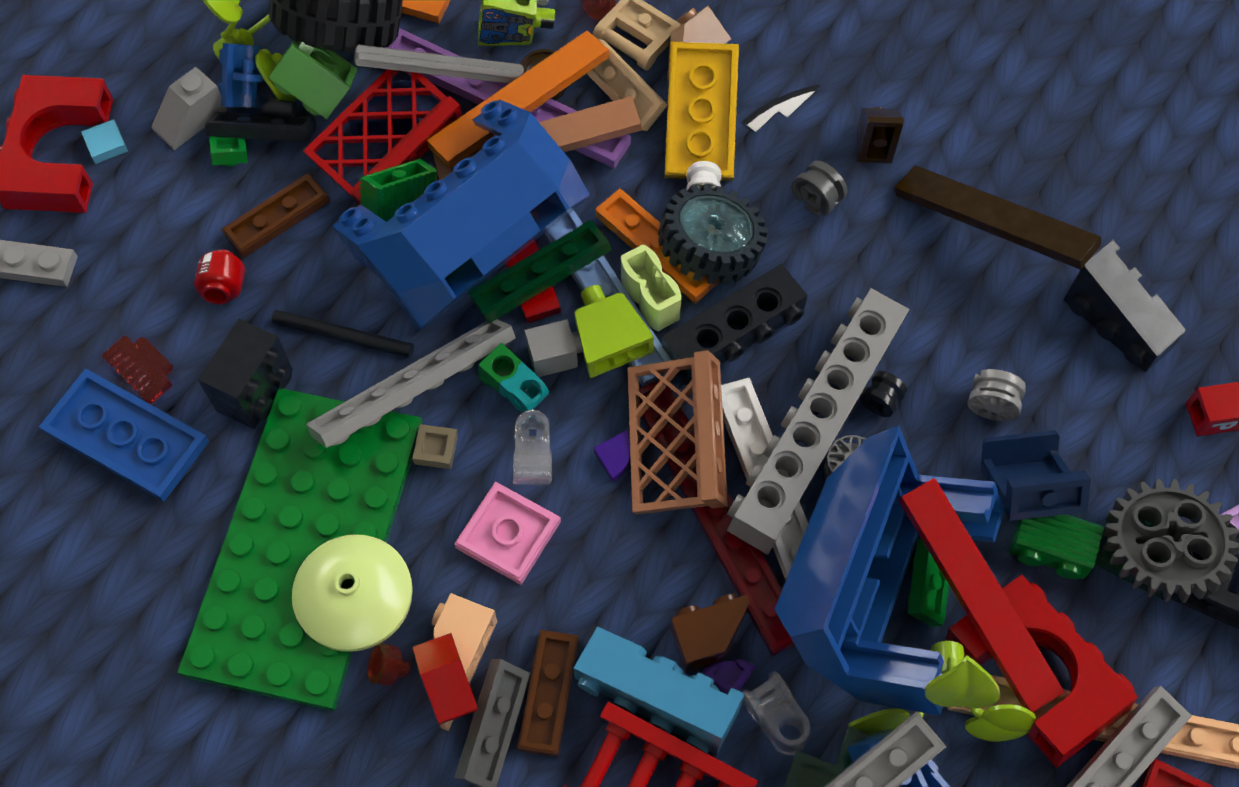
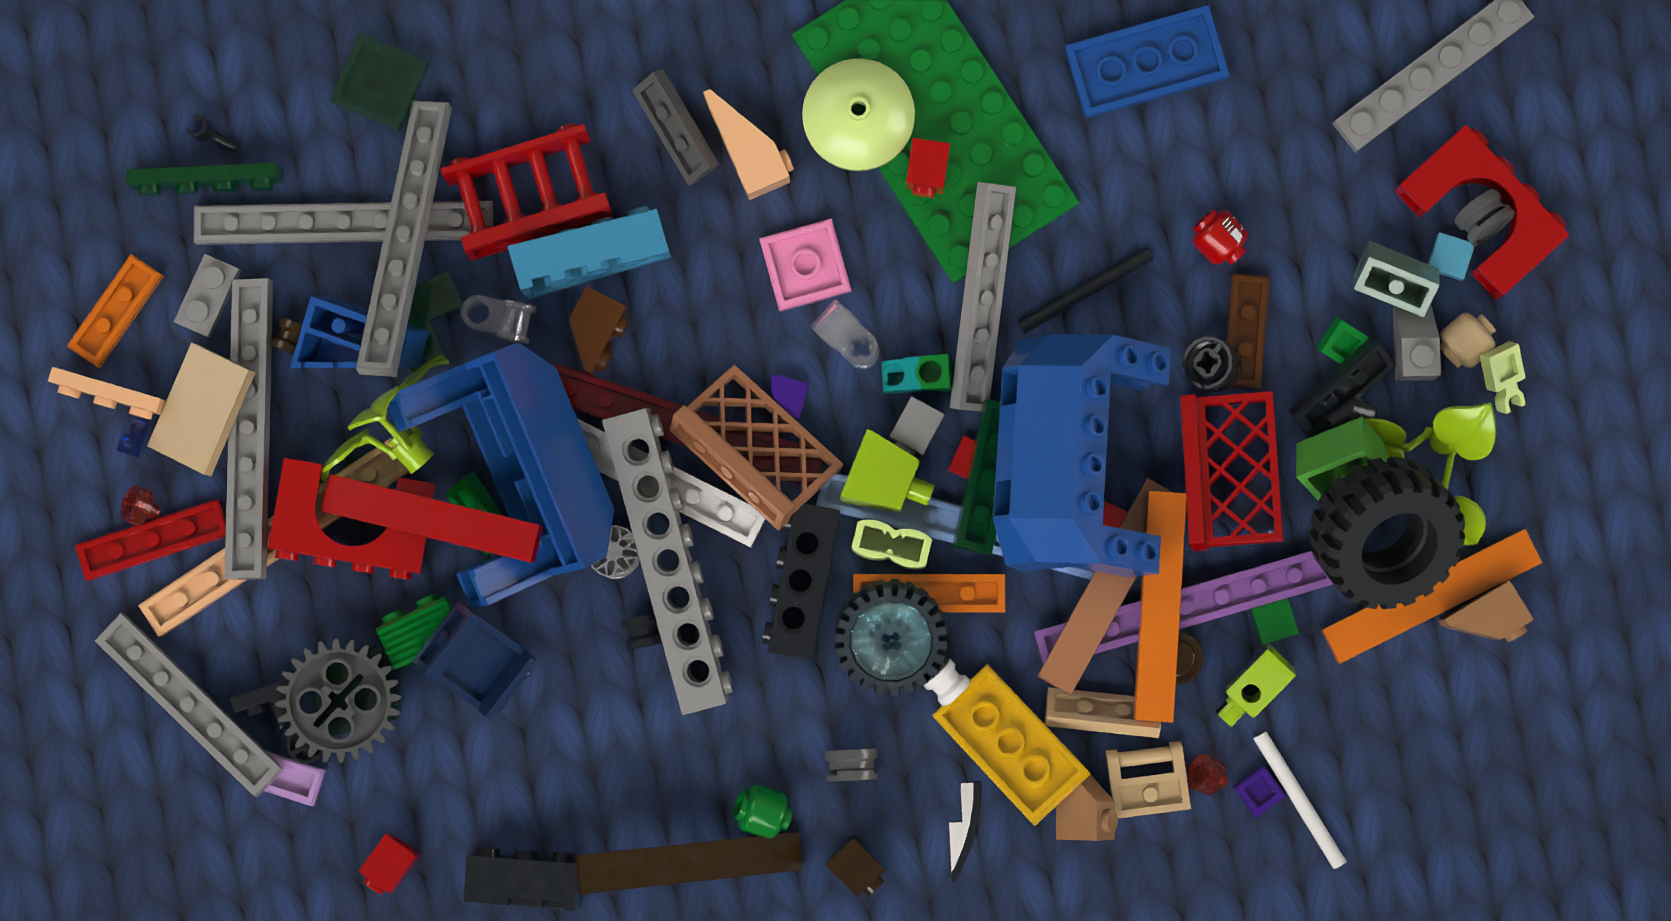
camera: 140 degrees right, 20 degrees up
(54, 133) = (1484, 217): none -> dark grey wheel
(146, 360) = (1203, 128): clear red piece -> none
(149, 148) = (1396, 279): none -> sand green brick
(153, 79) = (1467, 339): none -> tan head
(160, 46) = (1501, 372): none -> yellowish green plate
(239, 75) = (1402, 405): blue hips -> none
(246, 374) = (1102, 182): black brick -> none
(319, 206) = (1211, 364): none -> black wheel
(348, 498) = (927, 167): none -> red brick
(386, 665) = (785, 94): clear red tile -> none
(393, 187) = (1160, 431): green brick -> none
(435, 446) = (919, 272): dark tan plate -> none
(436, 64) = (1244, 562): light grey axle -> none
(444, 678) = (731, 116): red slope -> none
(462, 43) = (1274, 621): none -> green tile
(548, 693) = (664, 186): reddish brown tile -> none
(730, 674) = (556, 315): dark purple tile -> none
(909, 215) = (762, 811): none -> green head
(997, 393) = (559, 713): light grey wheel -> none

